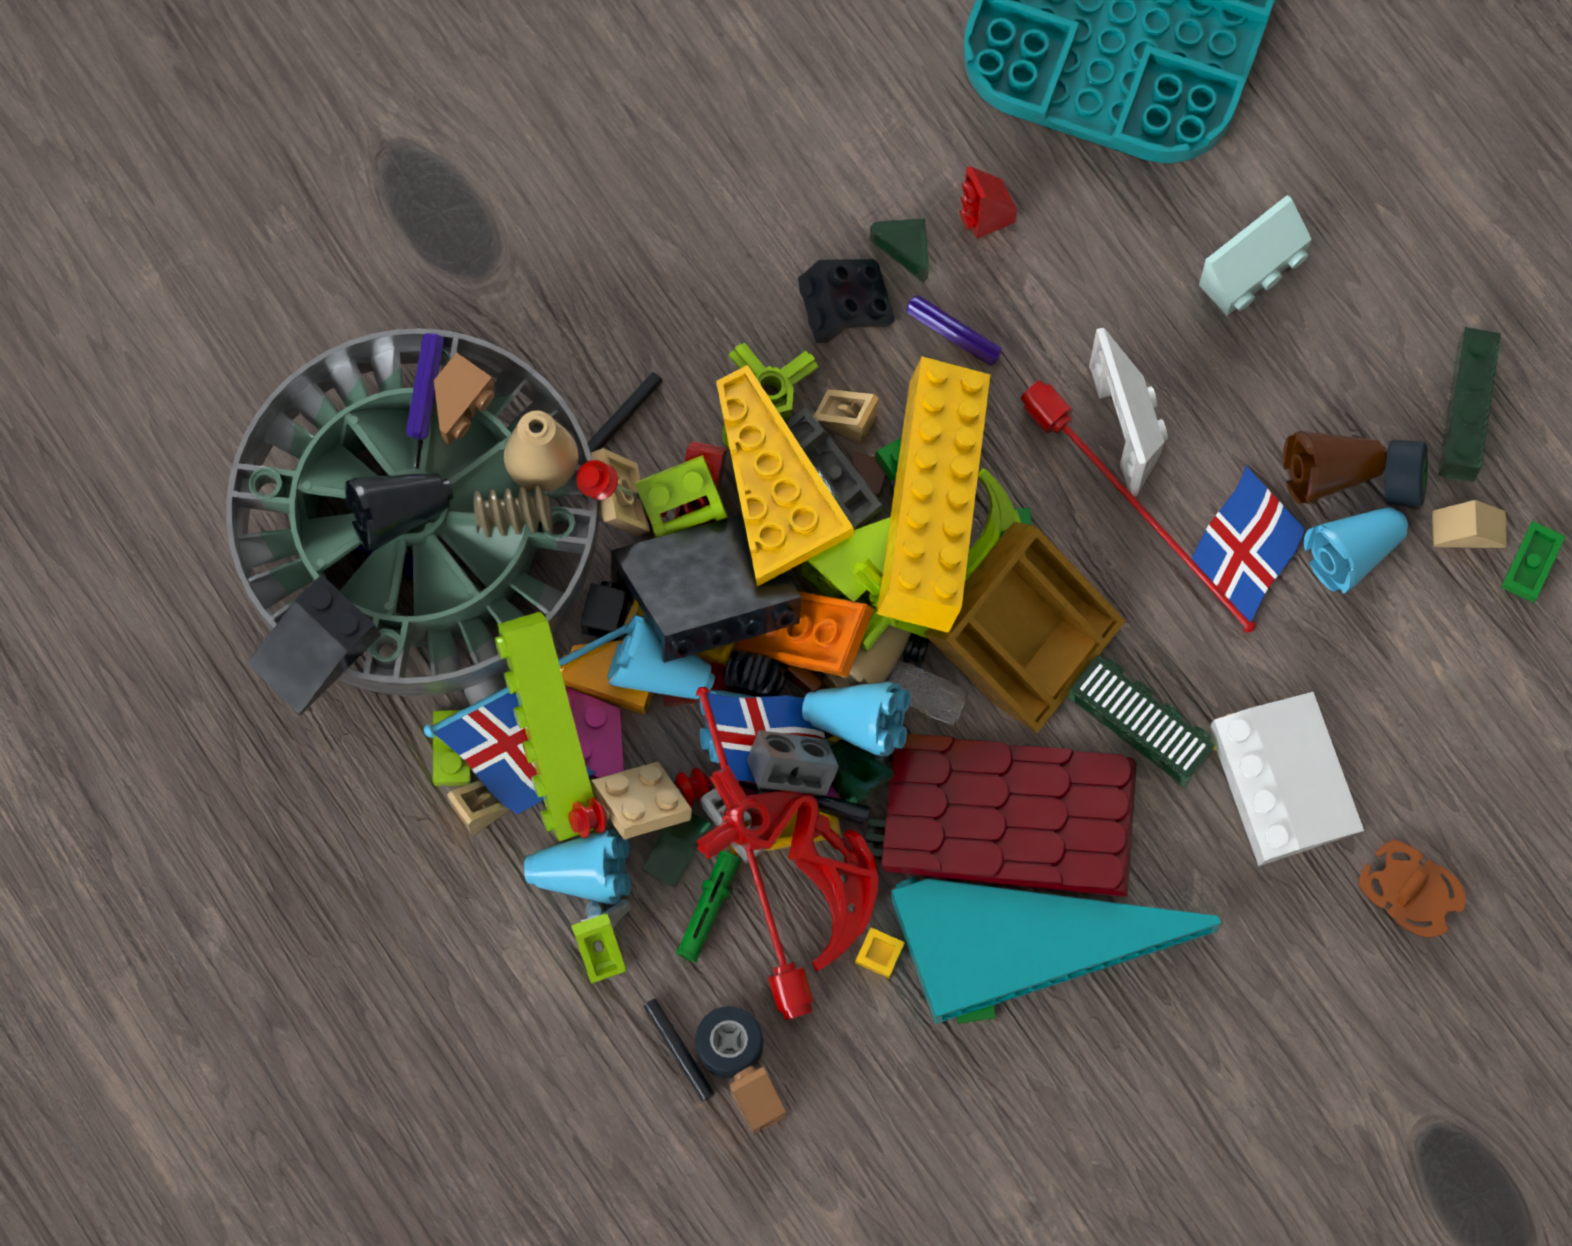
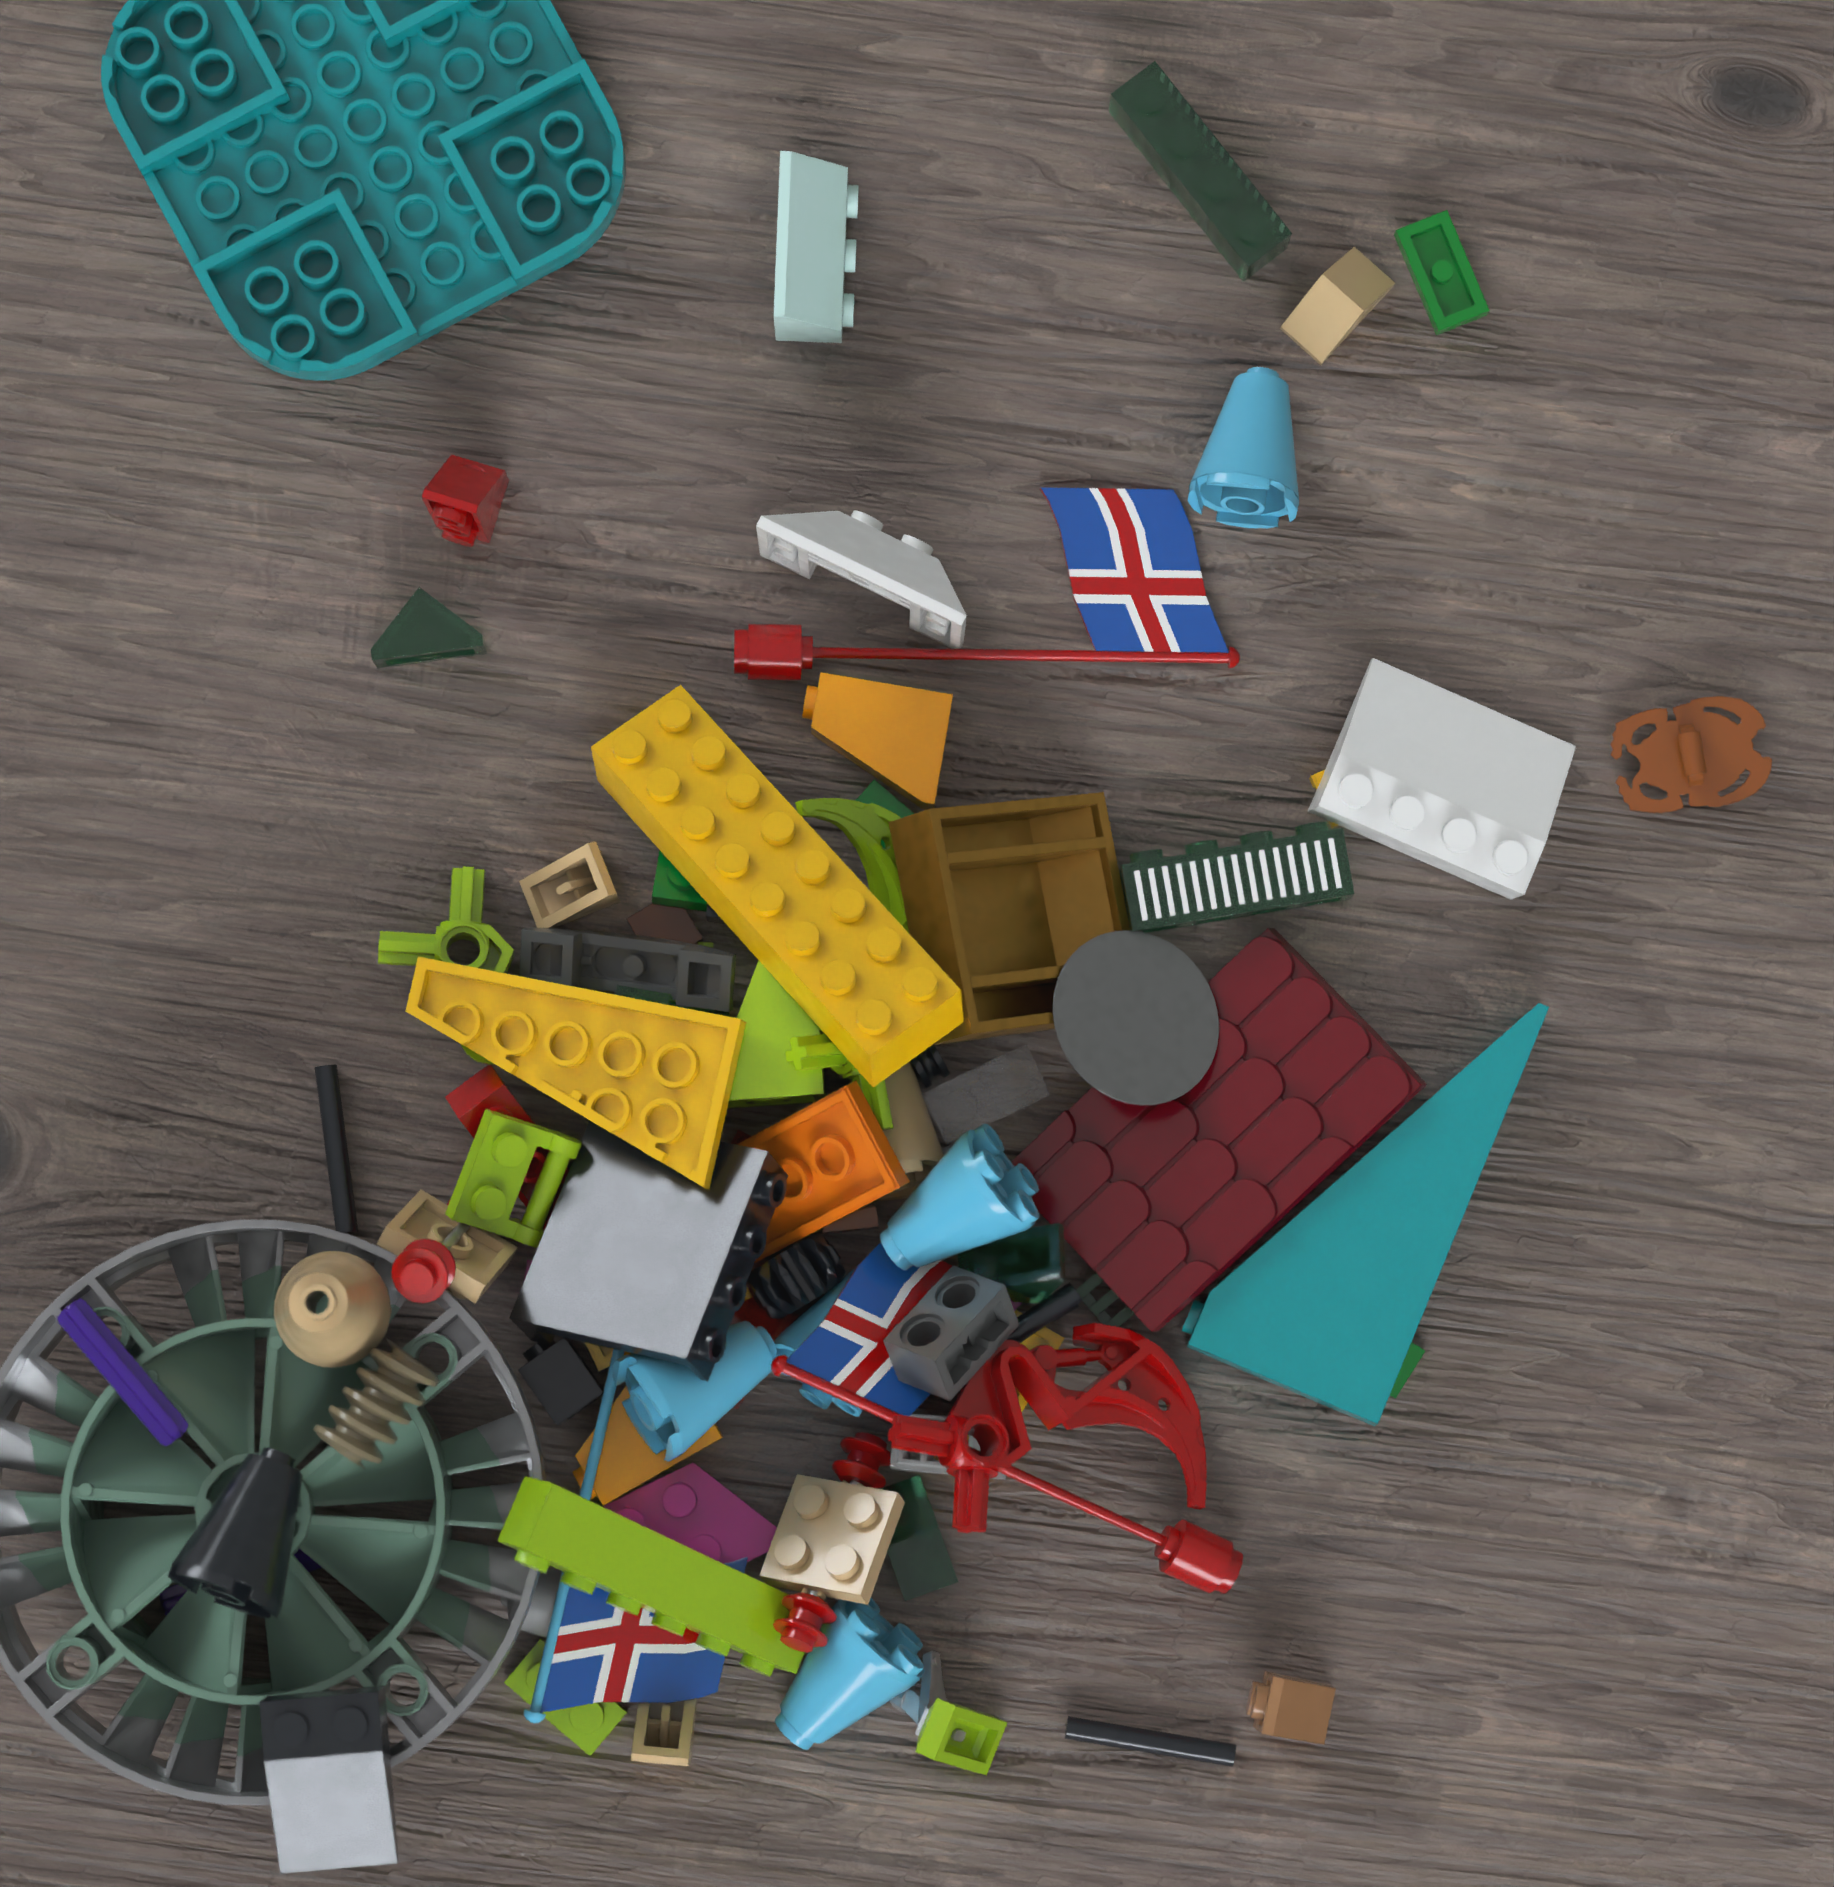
camera: 55 degrees left, 10 degrees up
(459, 394) = (172, 1344): medium nougat slope -> none
(722, 1030) = (1207, 1691): black wheel -> none
(726, 866) = (1046, 1625): green pin -> none
(844, 296) = (427, 763): black bracket -> none
(879, 952) = (1238, 1415): yellow tile -> none
(954, 330) = (579, 672): dark purple axle -> none
(1028, 725) = (1135, 1017): none -> flat silver sticker
(1059, 490) = (884, 730): none -> light orange slope
(1329, 463) = (1130, 394): reddish brown cone -> none
(1406, 473) = (1216, 318): black wheel -> none

